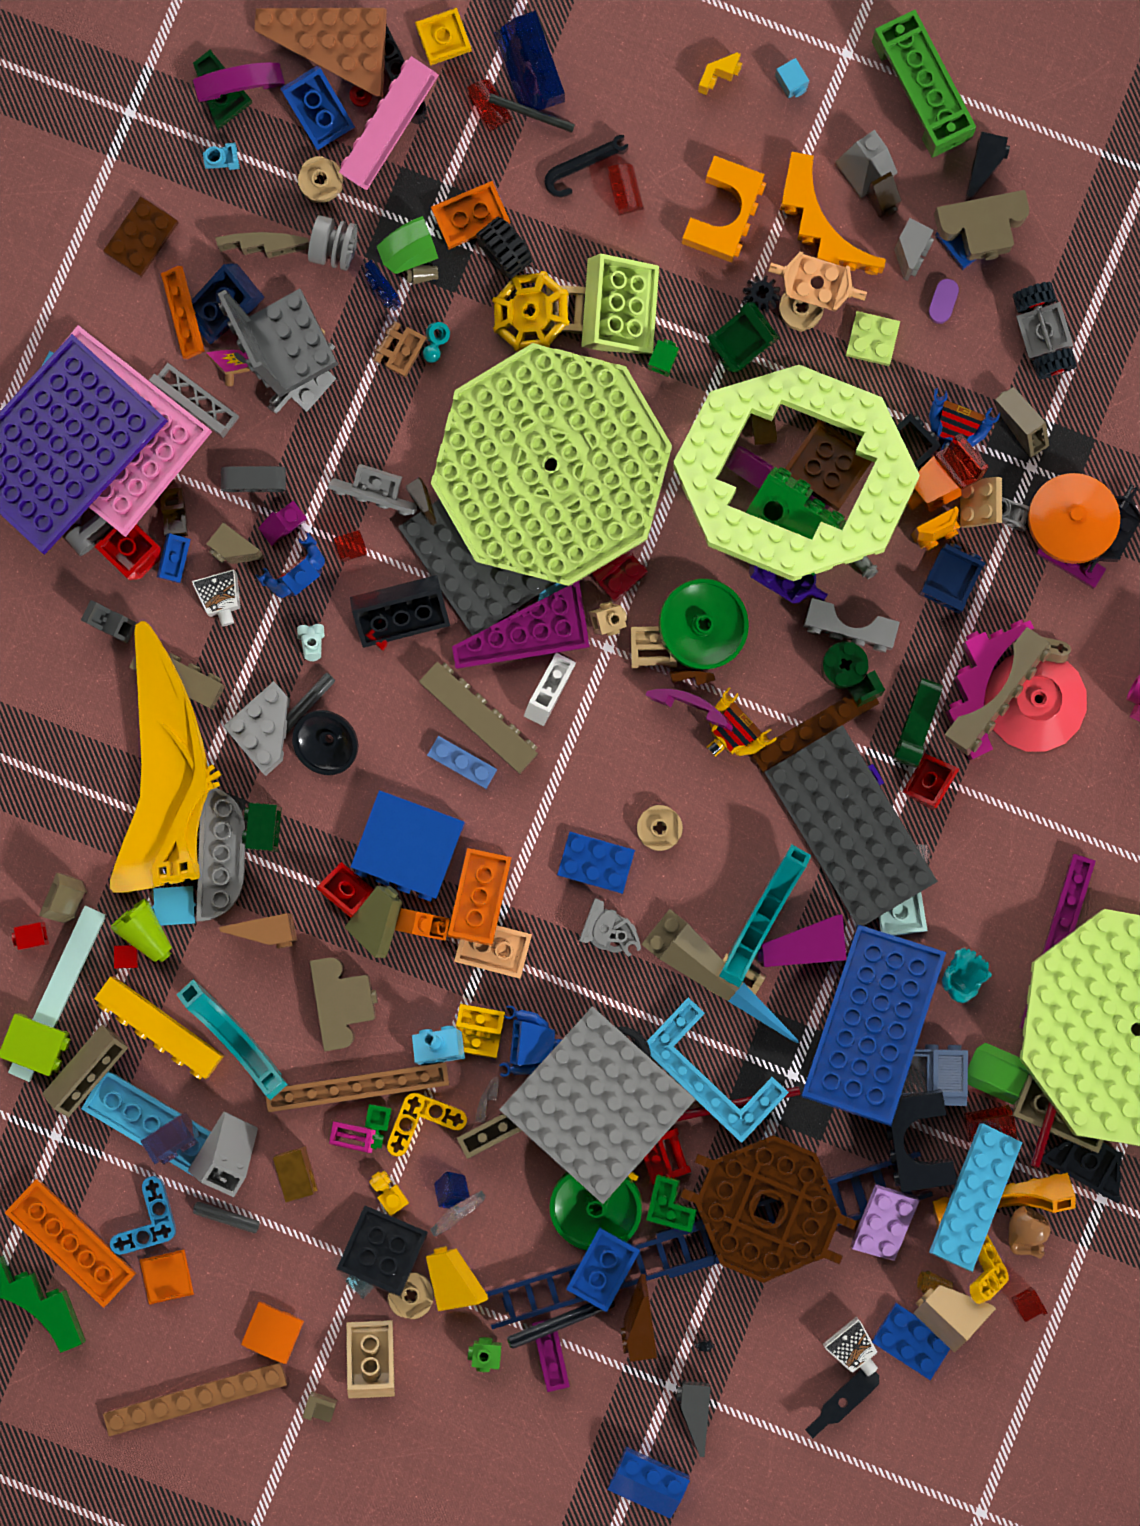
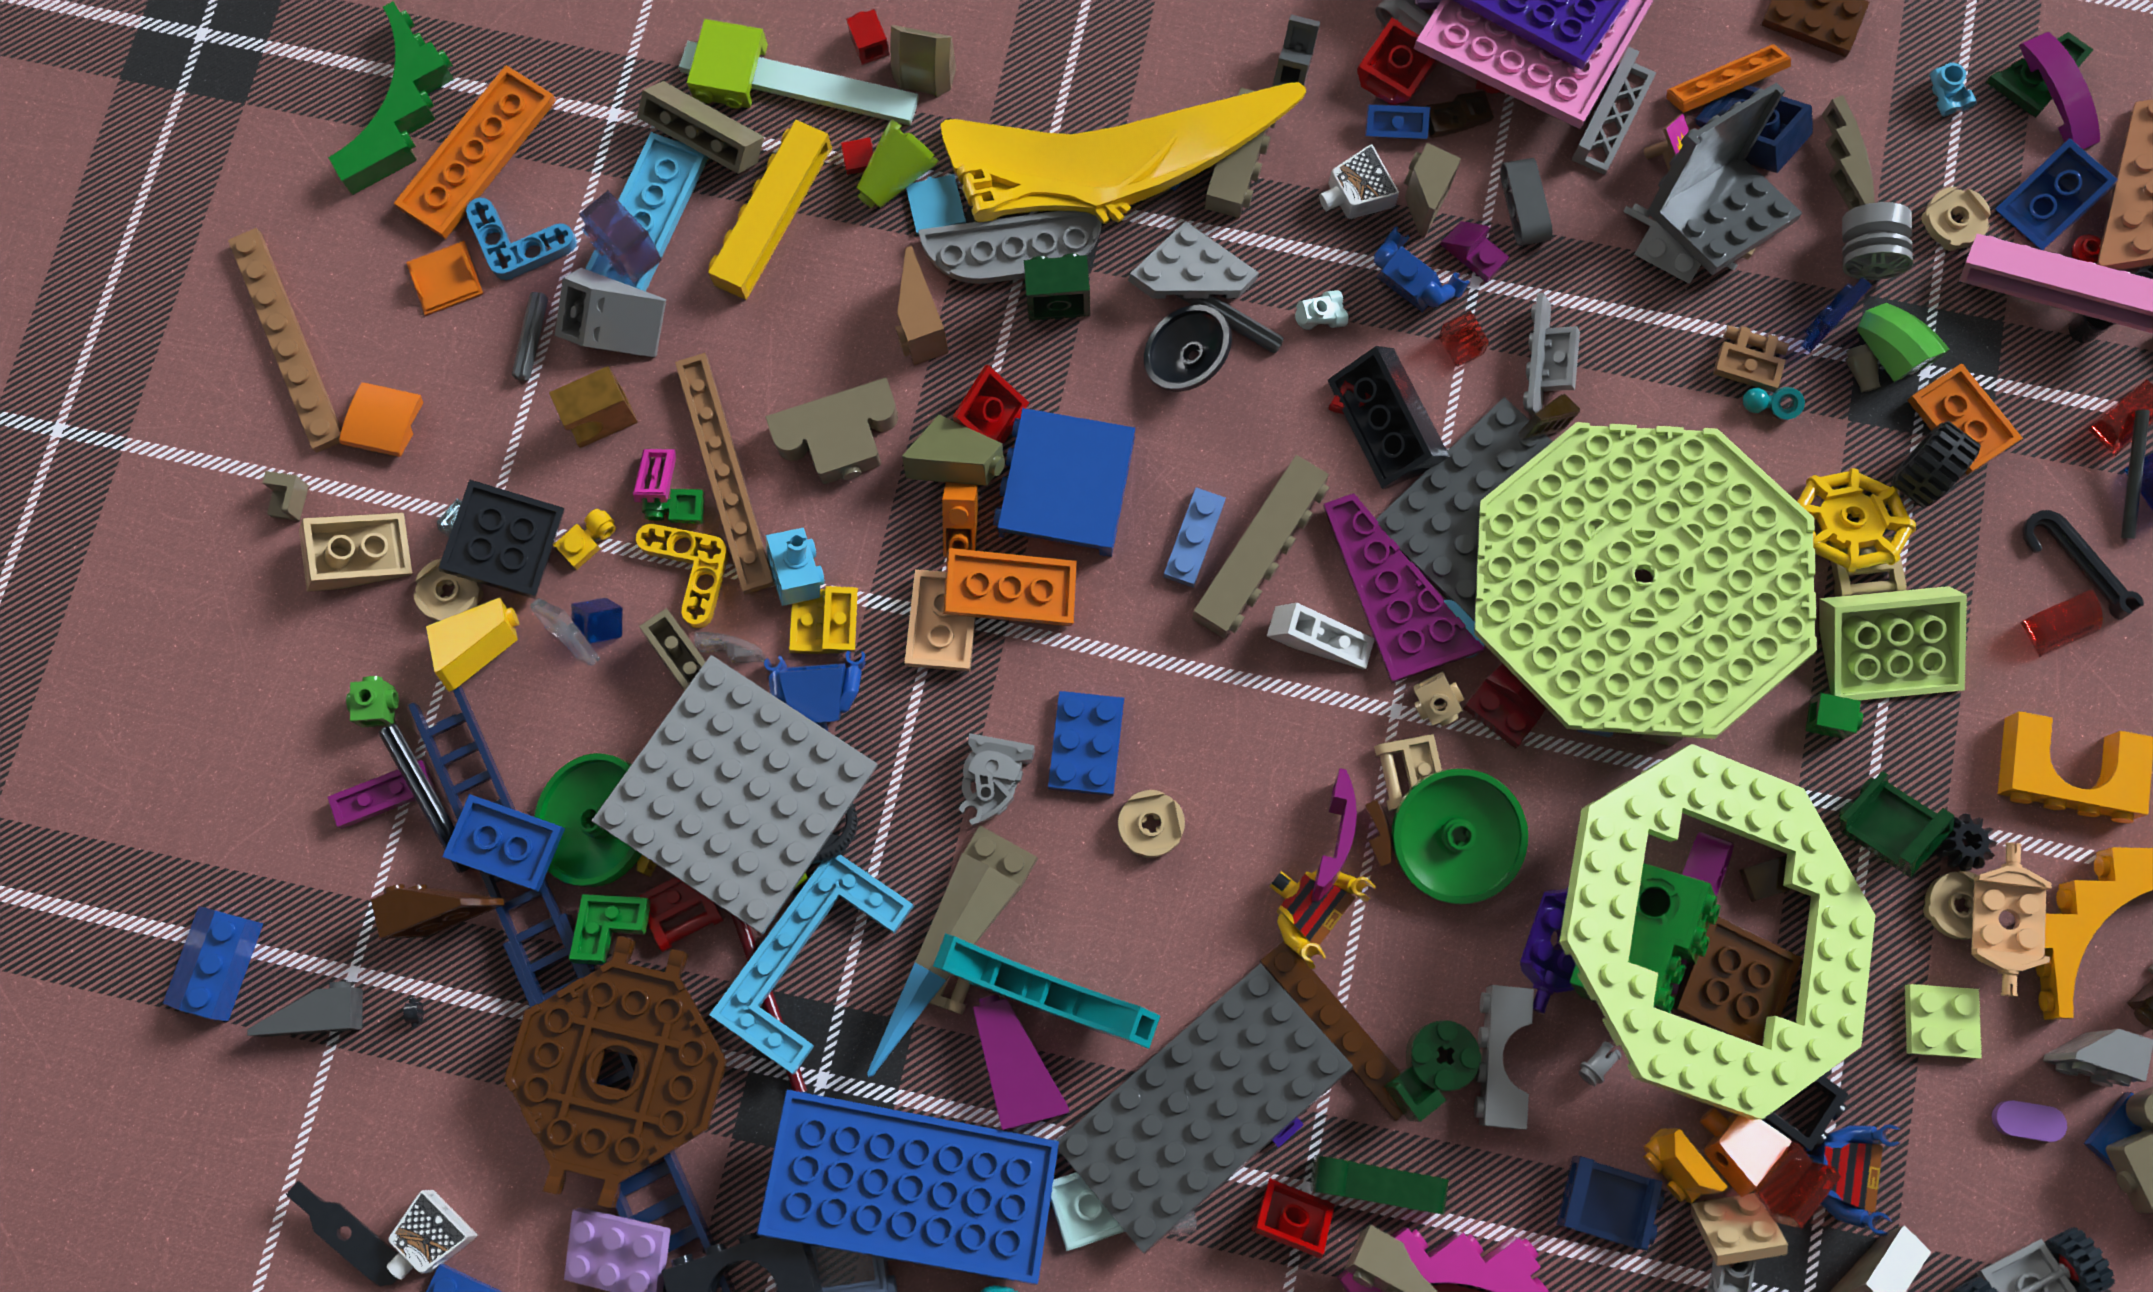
camera: 80 degrees right, 10 degrees down
(234, 1037) = (774, 299): teal arch -> none

